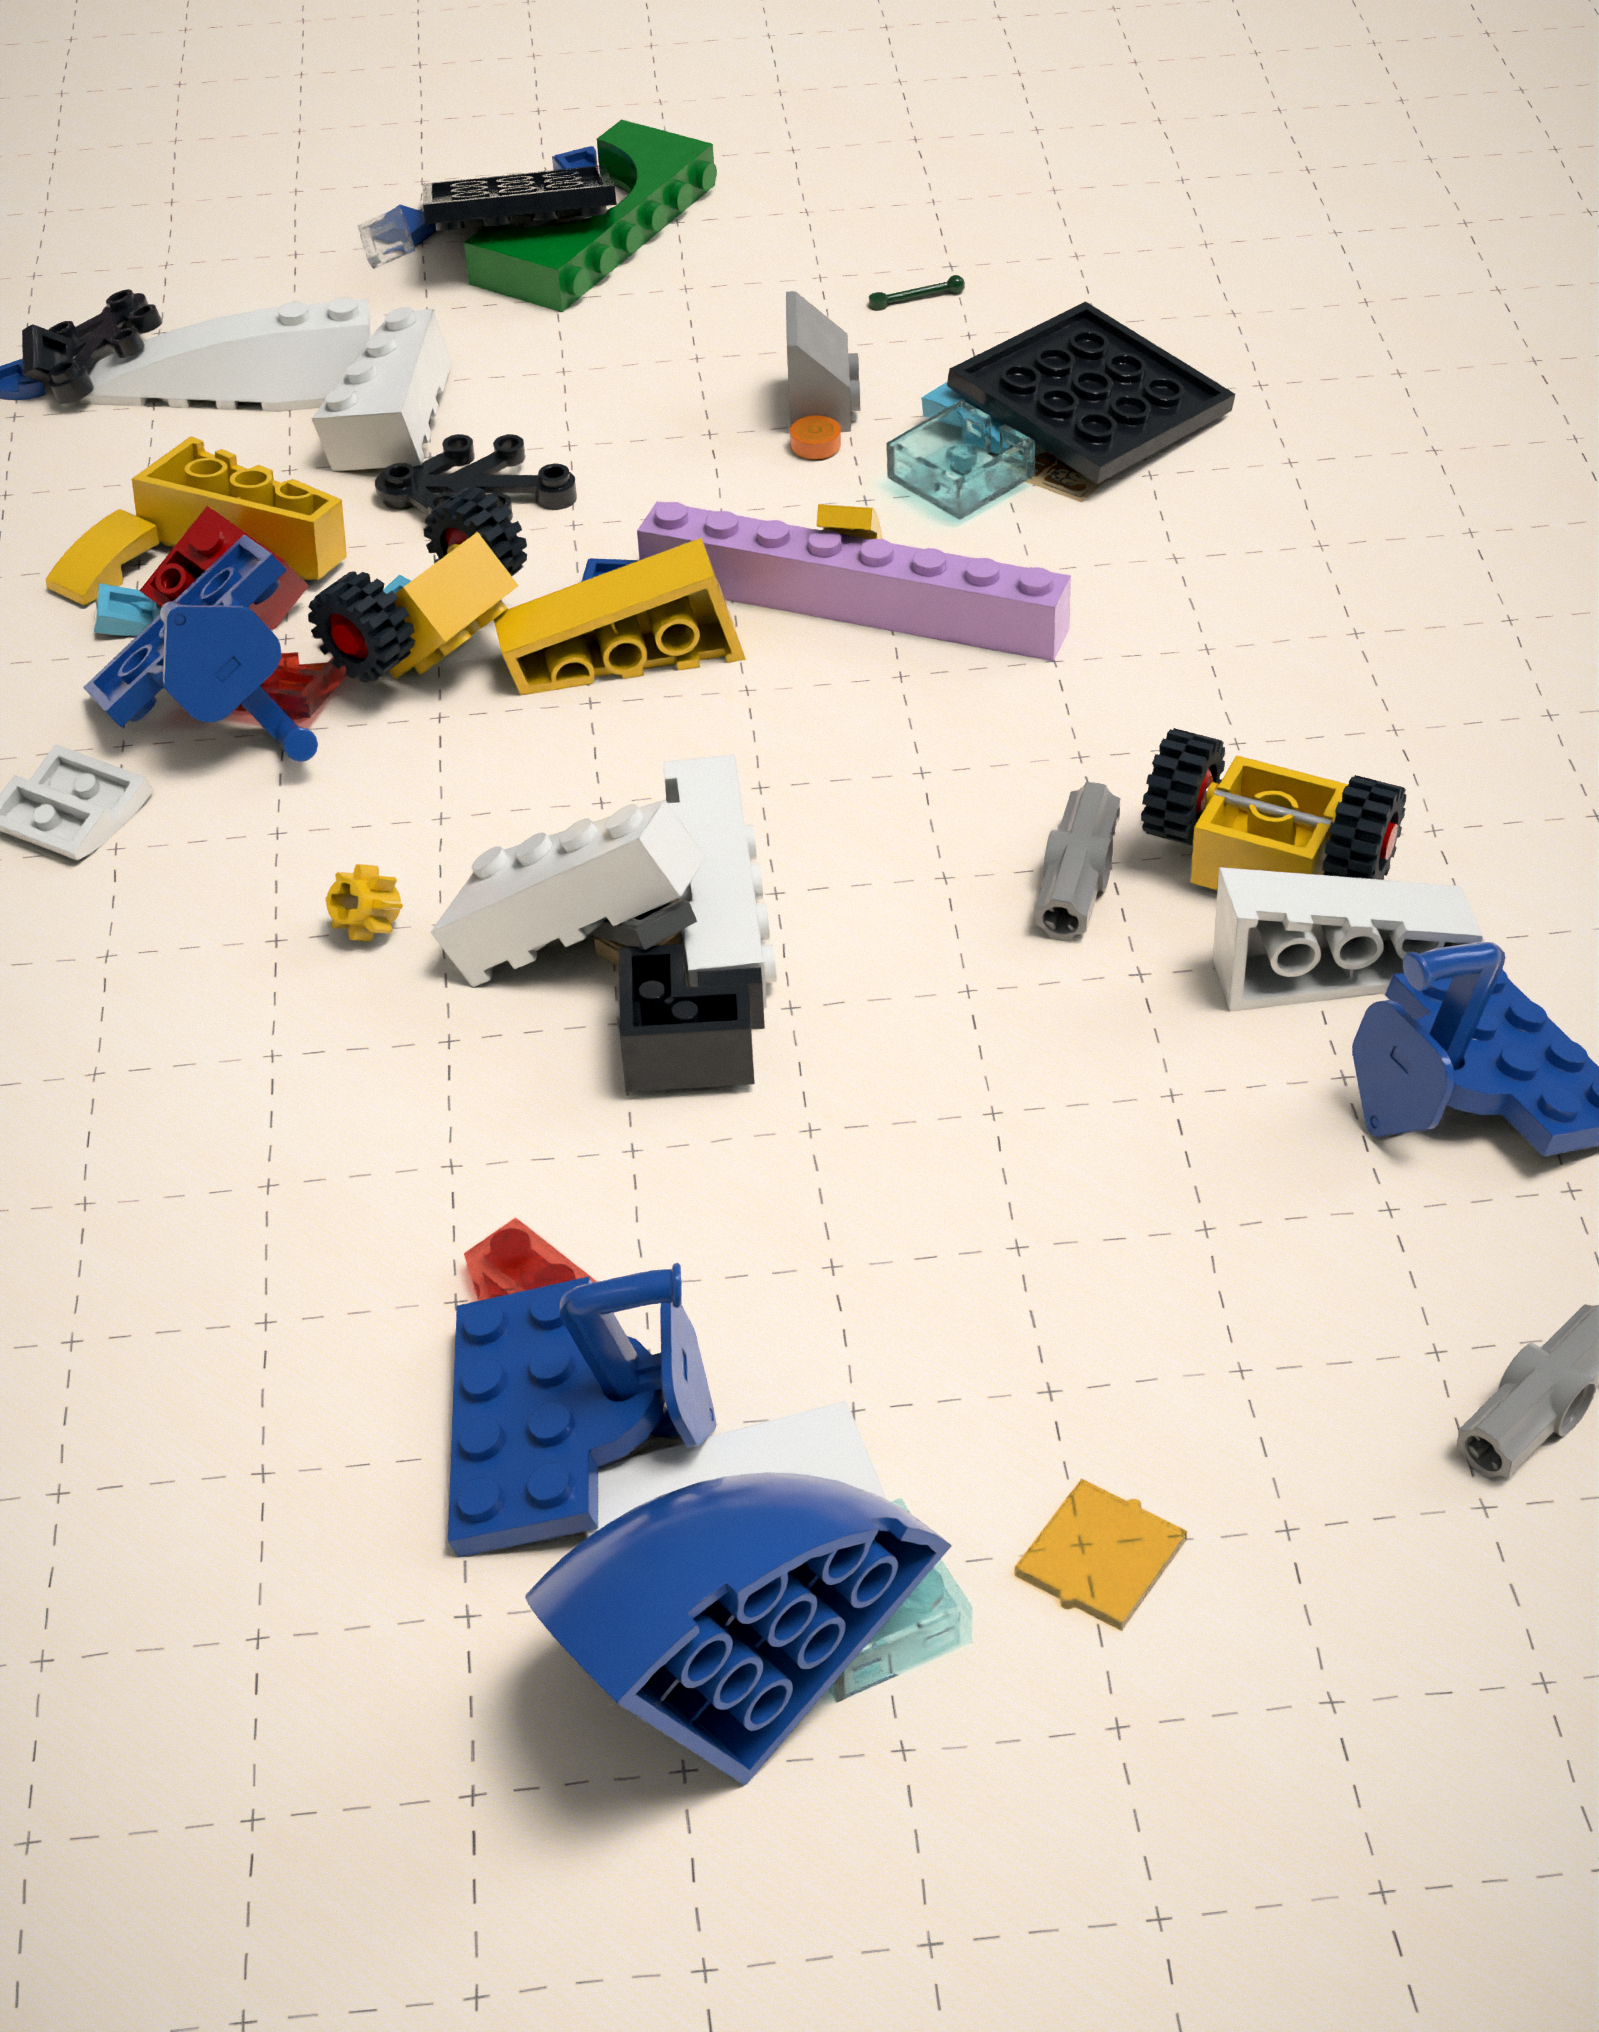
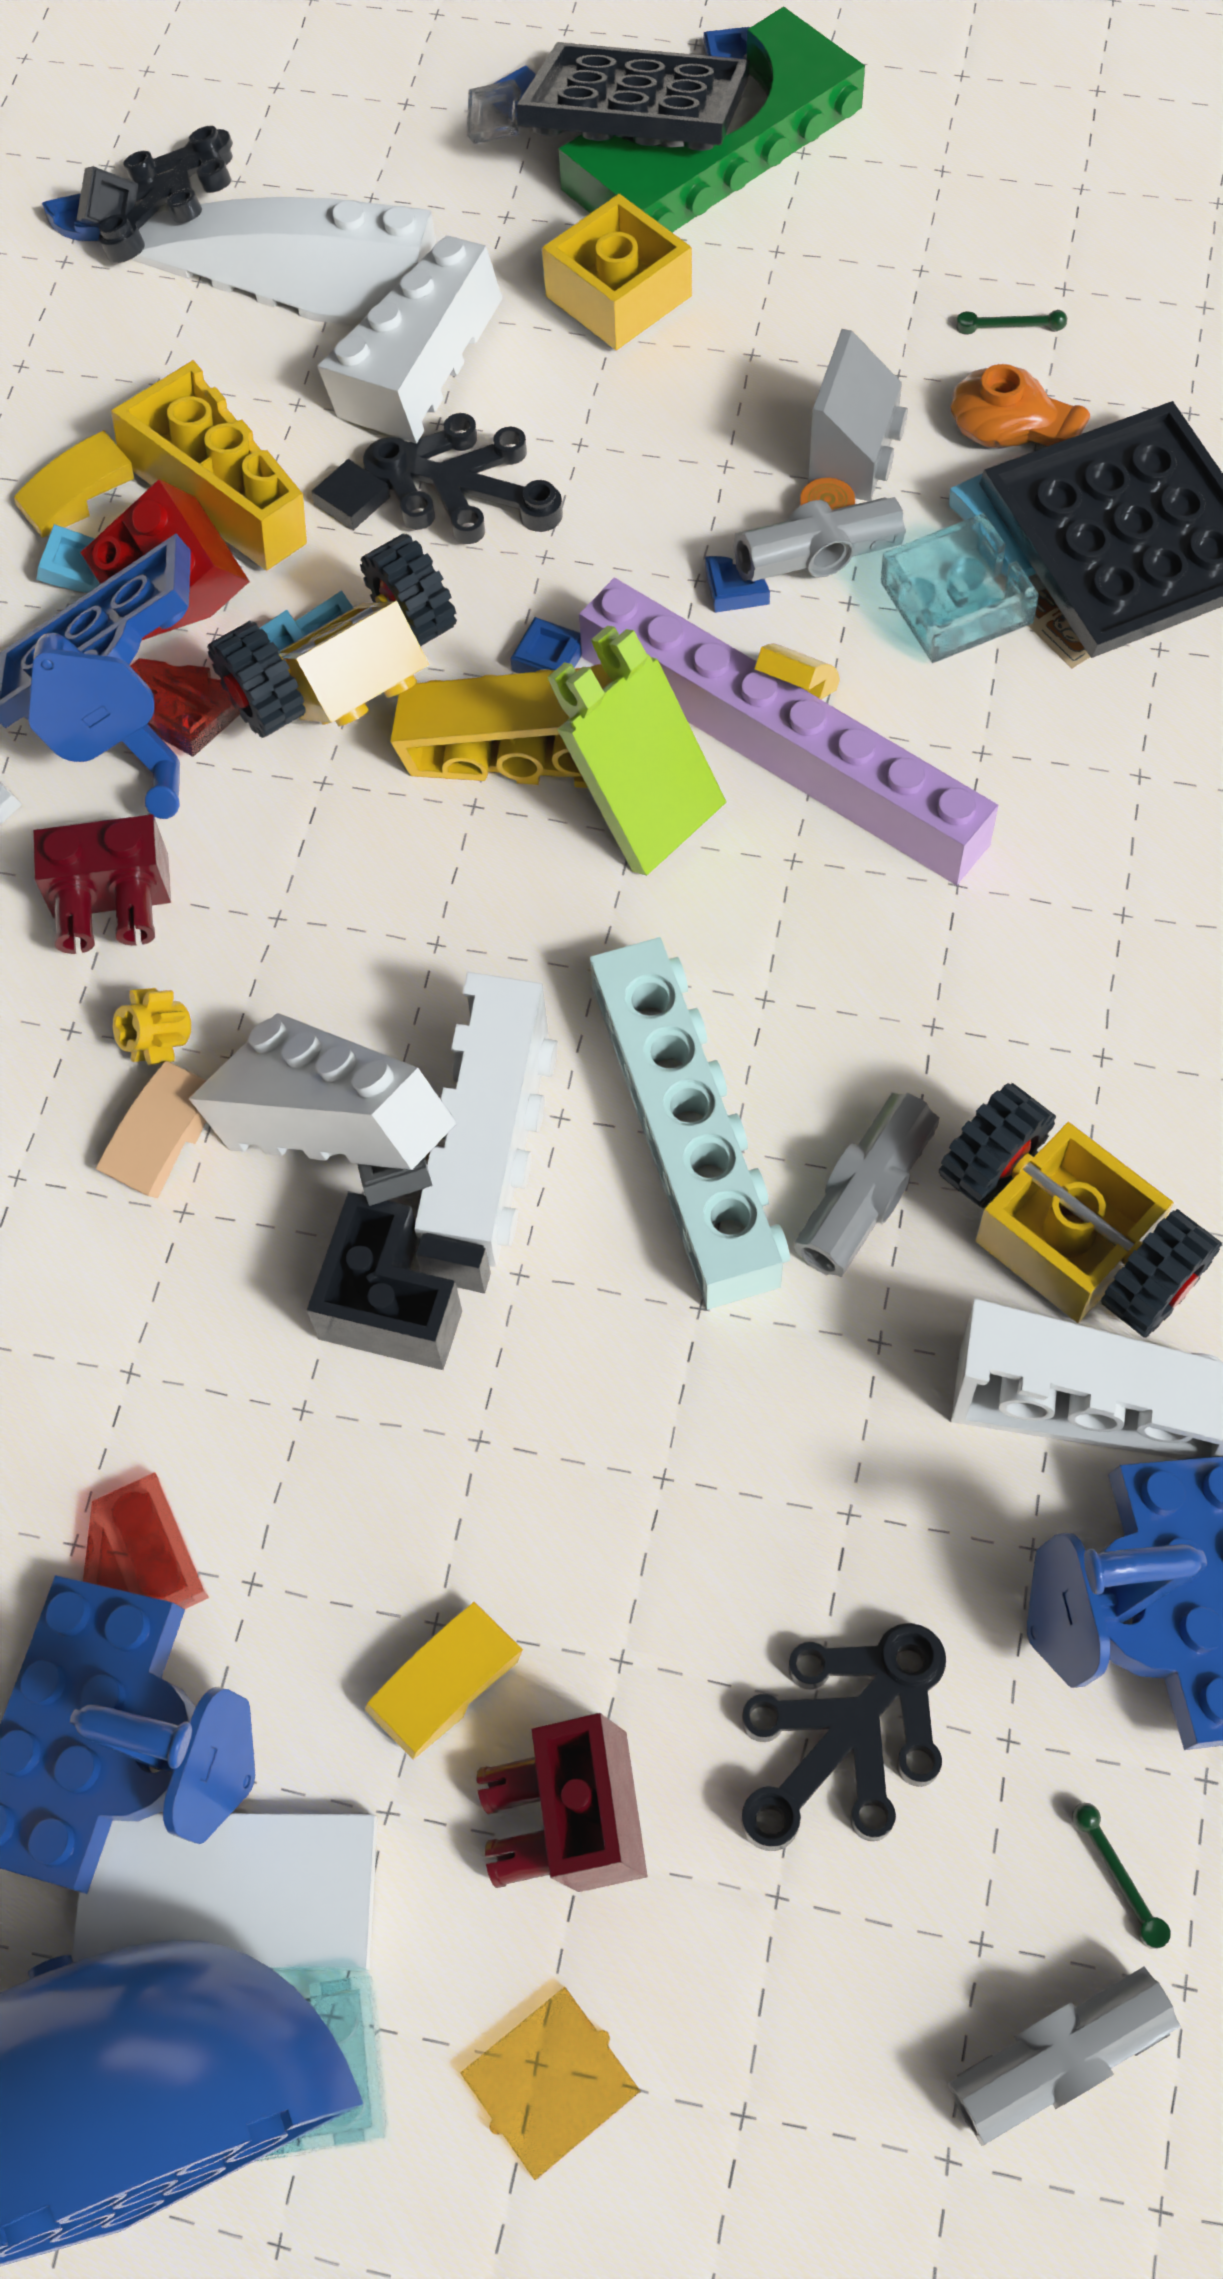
camera: 20 degrees right, 20 degrees up
(264, 806) = (102, 869): none -> dark red brick
(374, 514) = (350, 494): none -> black tile
(399, 981) = (154, 1131): none -> light nougat slope
(555, 314) = (617, 271): none -> yellow brick
(737, 595) = (636, 750): none -> lime tile
(758, 504) = (729, 589): none -> blue tile
(821, 452) = (819, 538): none -> light grey piece
(861, 1291) = (442, 1680): none -> yellow slope
(898, 858) = (723, 1264): none -> light aqua brick
(942, 340) = (1011, 408): none -> orange animal
(1046, 1323) = (586, 1808): none -> dark red brick
(1271, 1172) = (851, 1725): none -> black plant
(1484, 1236) = (1153, 1930): none -> dark green hinge

